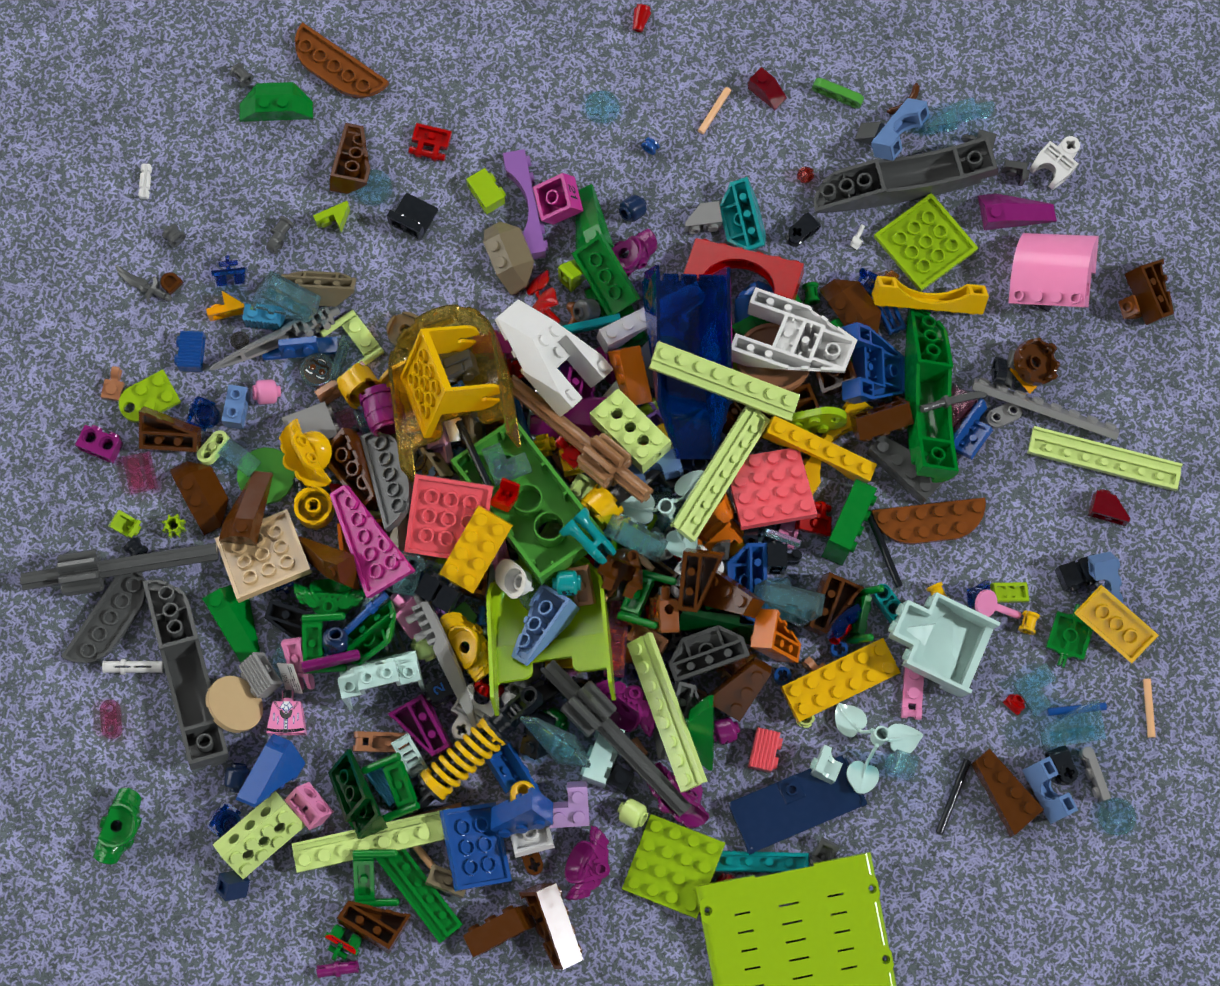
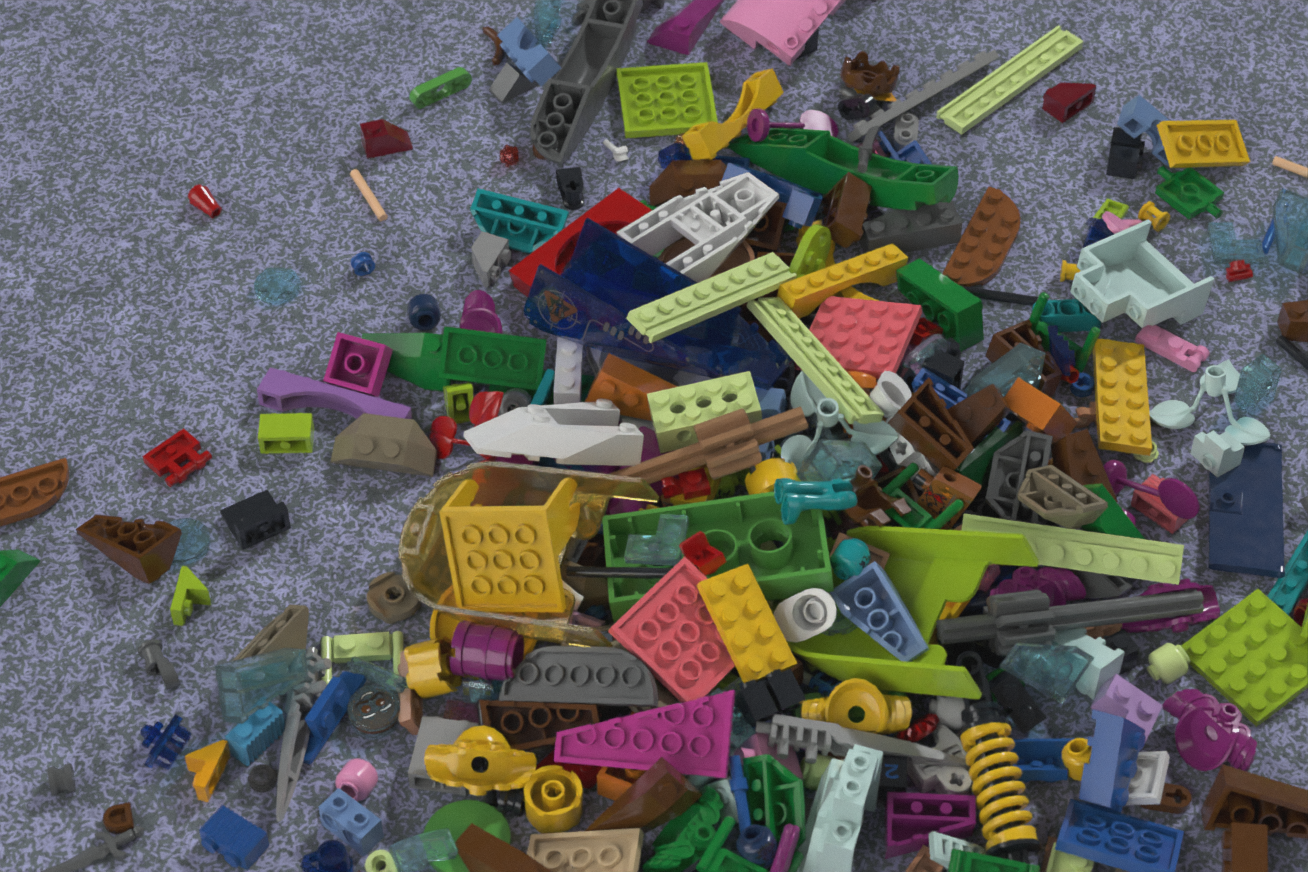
camera: 55 degrees left, 25 degrees down
(692, 682) = (1060, 498): none -> dark tan wedge
(720, 536) = (890, 393): none -> white piece
(763, 709) = (1173, 493): none -> magenta piece
(966, 354) = (759, 123): none -> magenta piece

